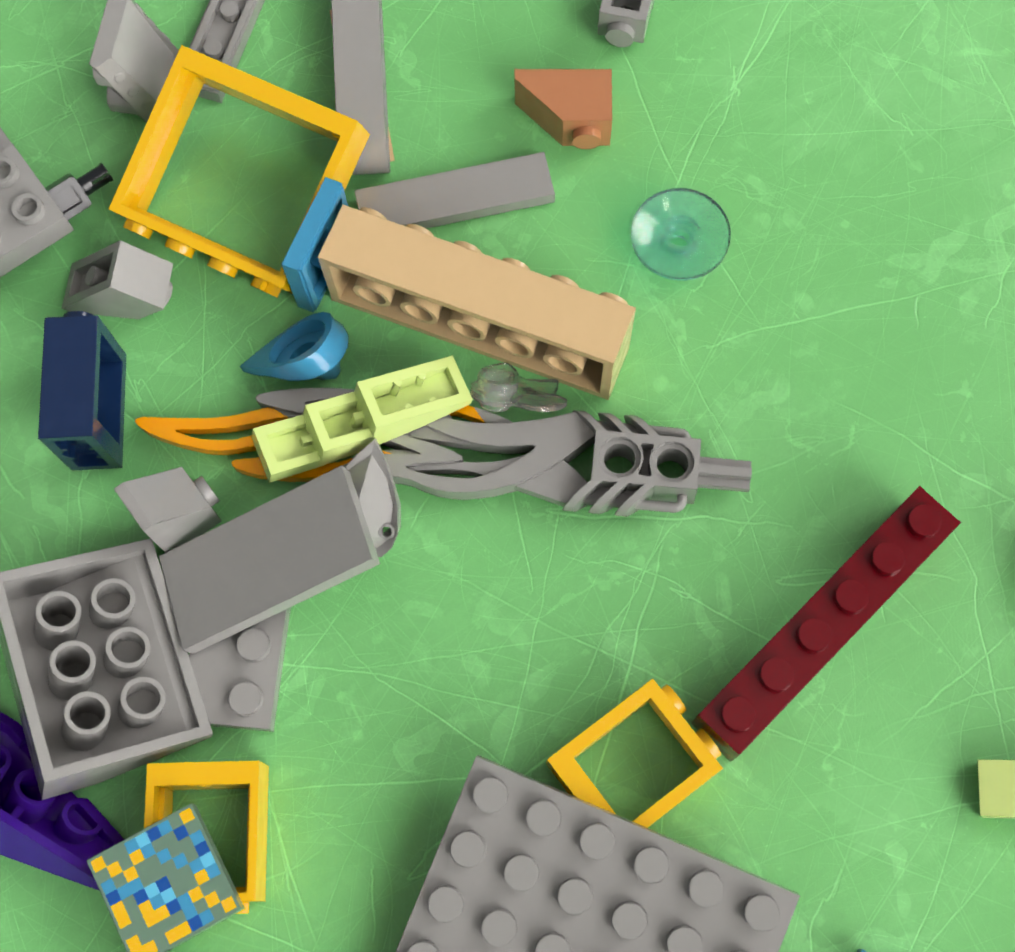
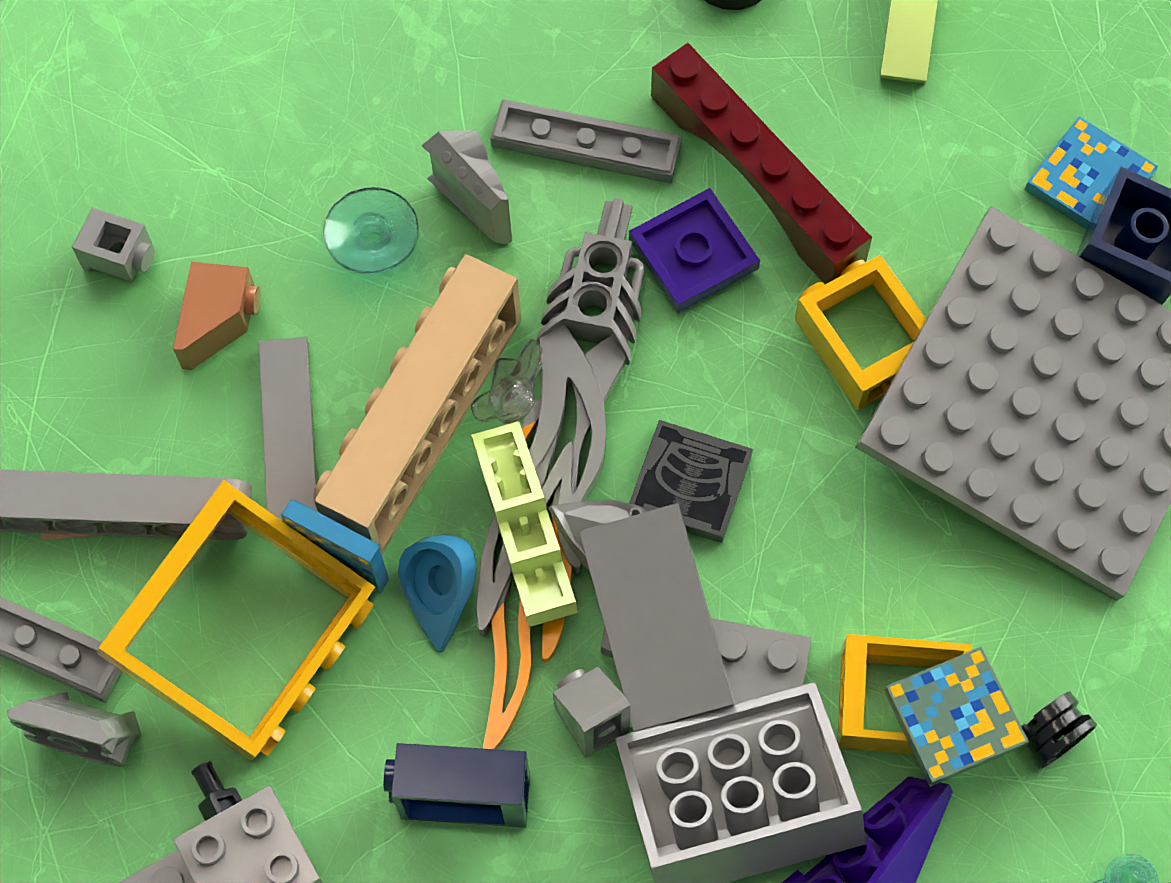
camera: 85 degrees left, 5 degrees down
(119, 283) = (334, 763): light grey slope -> none
(439, 589) = (695, 472): none -> tile
(710, 564) = (694, 250): none -> dark purple plate
(746, 317) = (469, 181): none -> light grey slope
(831, 440) = (586, 141): none -> light grey tile

